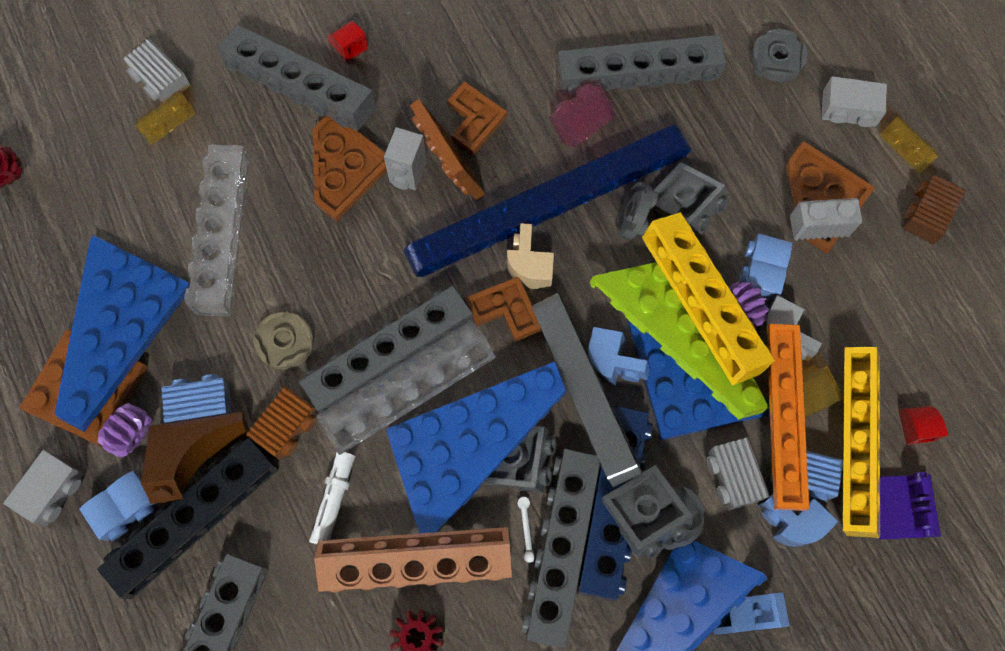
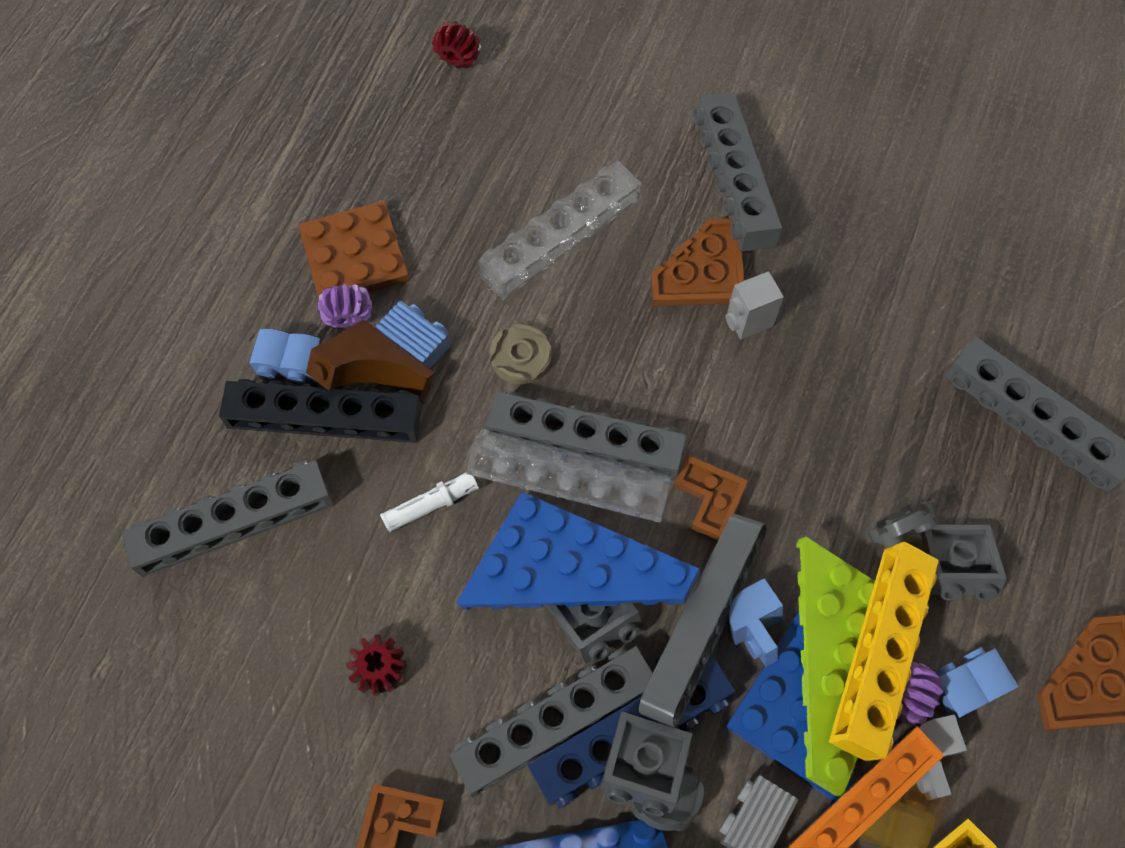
camera: 50 degrees right, 5 degrees down
(44, 489) = (254, 294): light grey brick -> none
(115, 320) = (424, 225): blue wing -> none
(156, 72) = (638, 76): light grey brick -> none
(165, 118) = (609, 115): clear yellow hinge -> none
(283, 423) = (453, 411): dark orange brick -> none
(349, 41) = (809, 179): red brick -> none
(398, 550) = (454, 609): nougat brick -> none
(444, 148) = (792, 328): dark orange plate -> none
(480, 115) = (855, 330): dark orange plate -> none
(523, 504) = (562, 657): white hinge -> none
(532, 267) = (765, 484): tan brick -> none
(546, 201) = (845, 449): clear blue beam -> none
(582, 115) = (942, 406): clear pink brick -> none
(825, 218) = (1072, 696): light grey brick -> none

